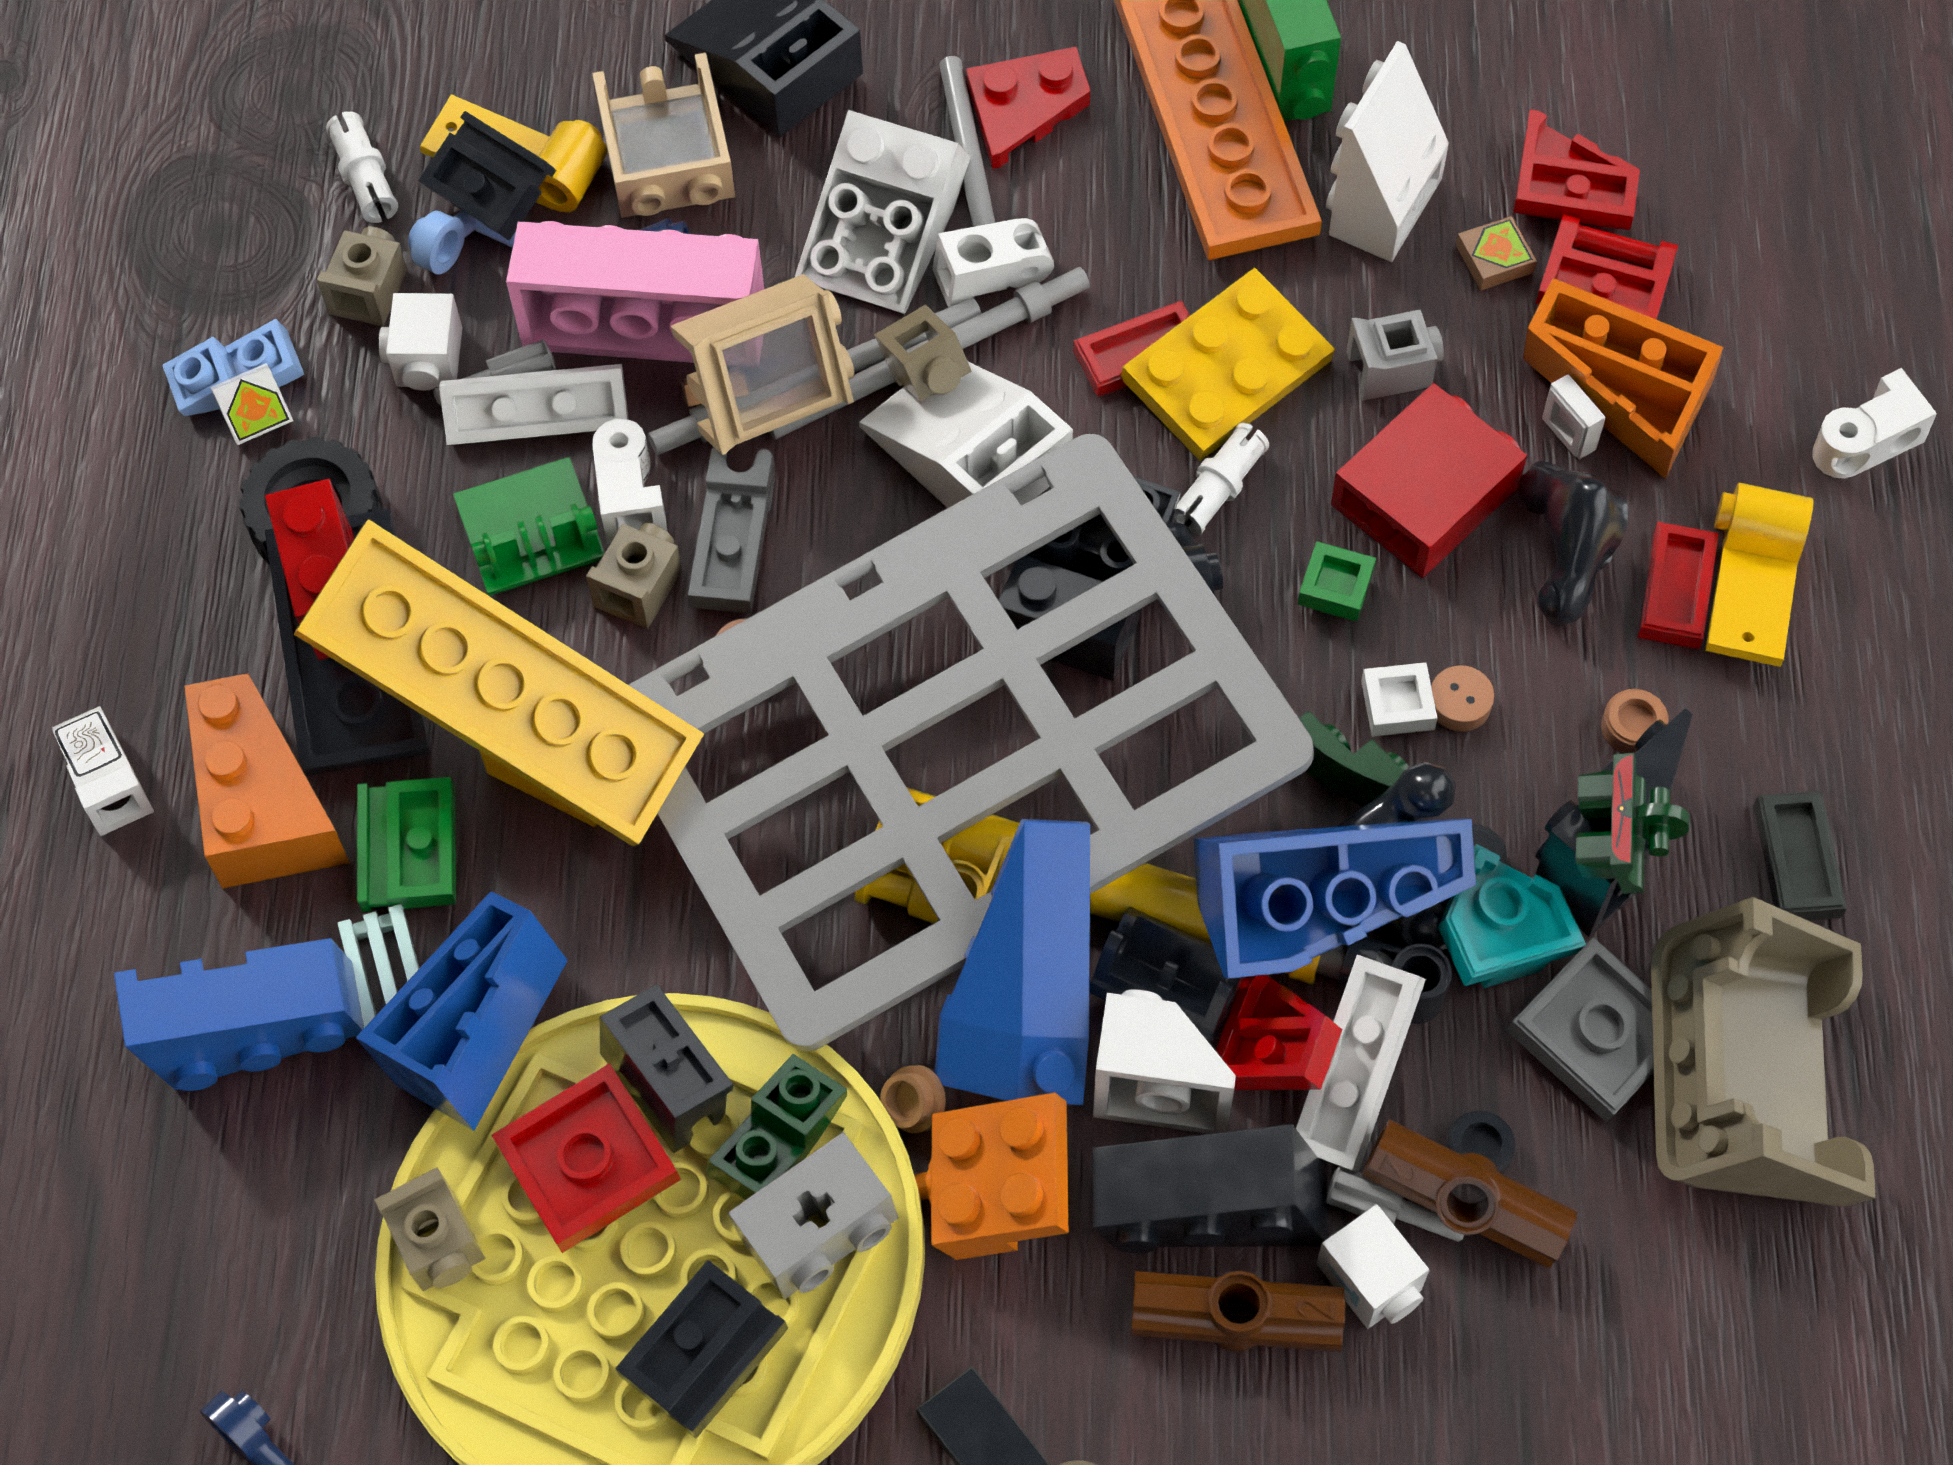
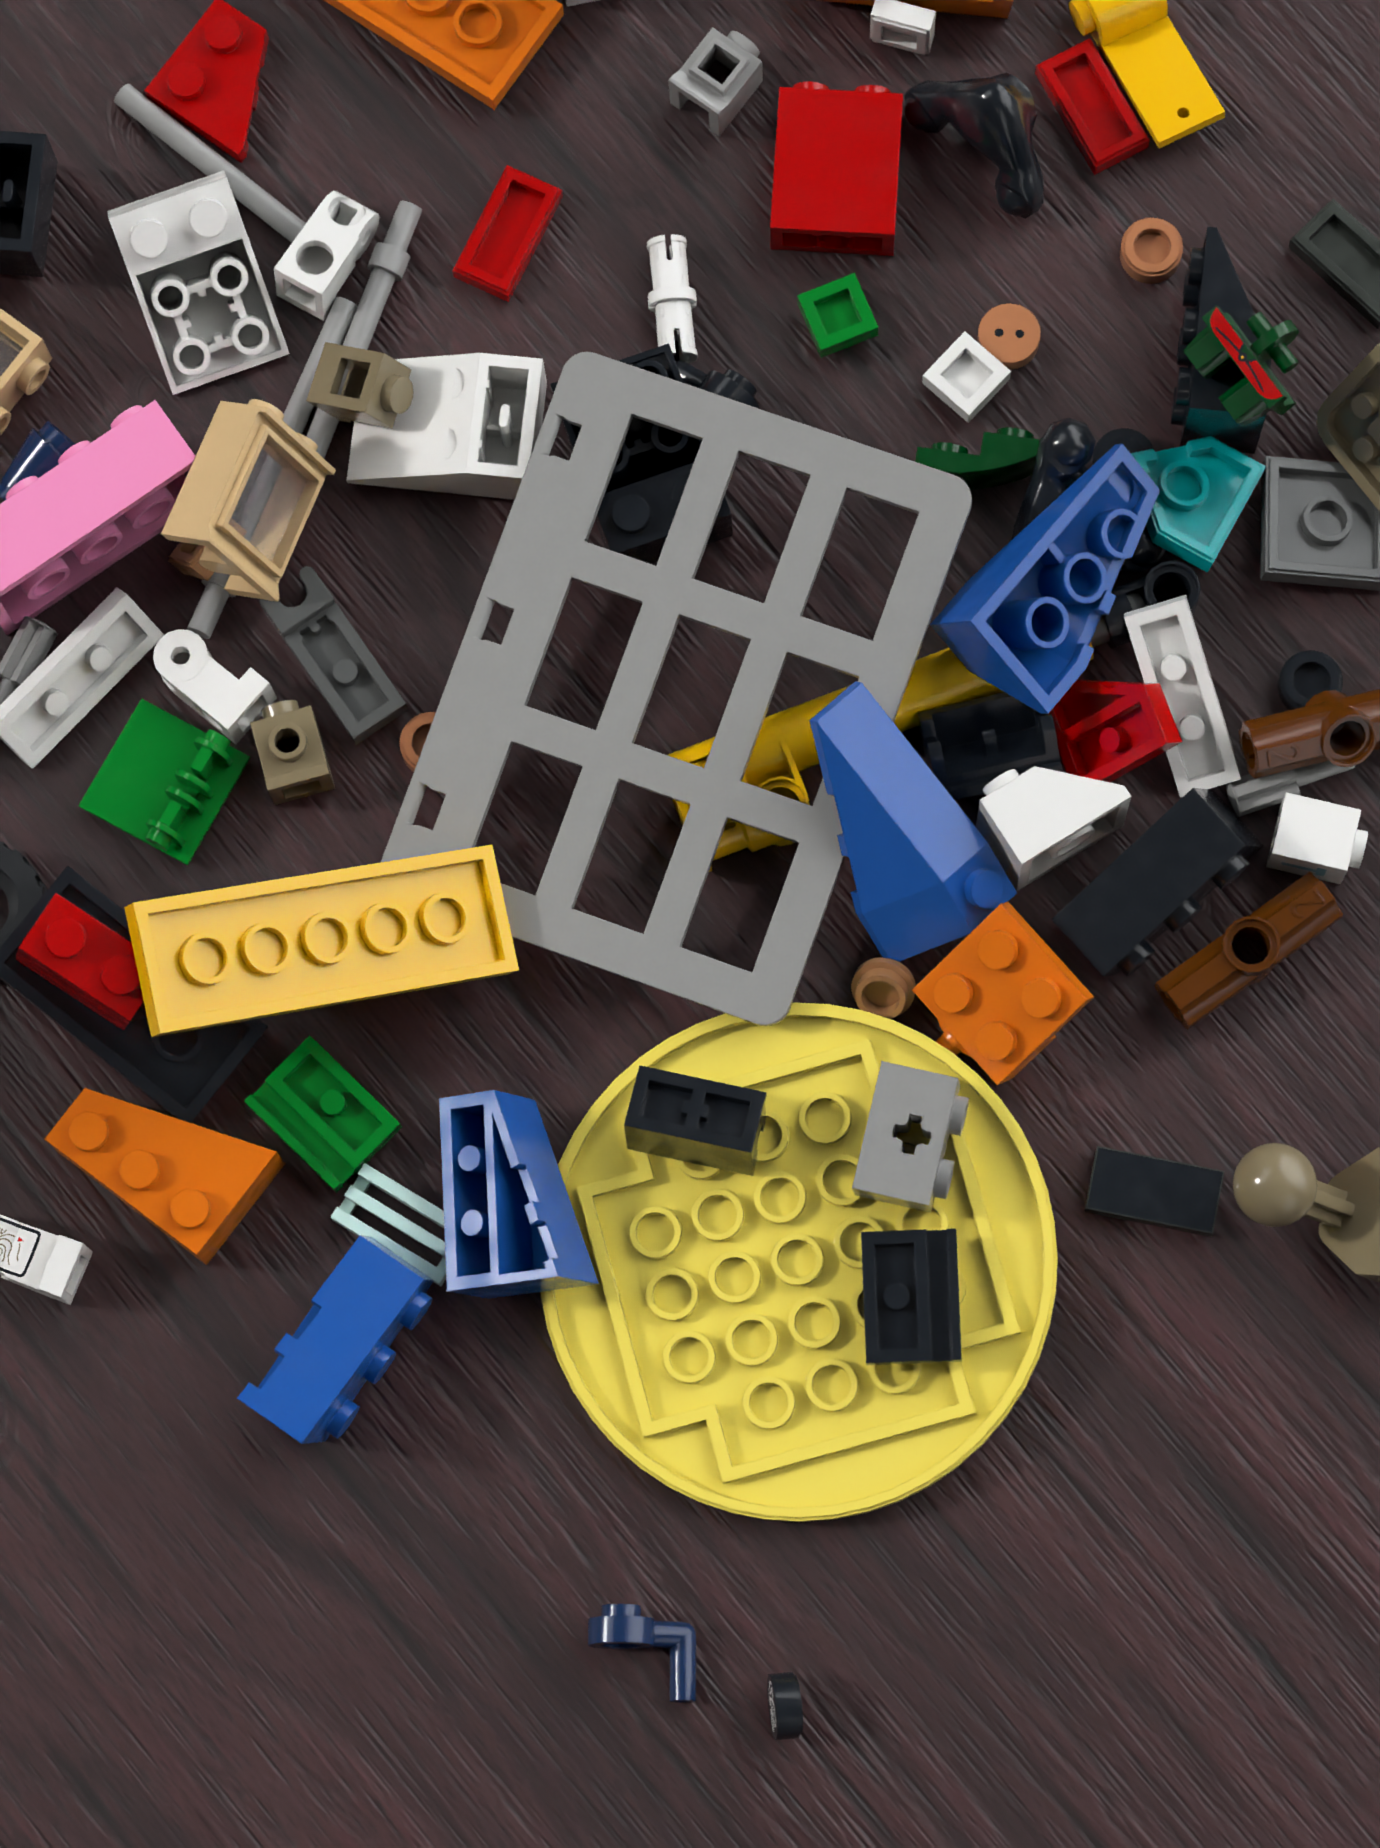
camera: 35 degrees left, 15 degrees up
(418, 1208) = (609, 1381): dark tan brick -> none
(586, 1157) = (697, 1233): red plate -> none
(780, 1131) = (818, 1097): dark green slope -> none
(1227, 363) = (592, 192): yellow plate -> none

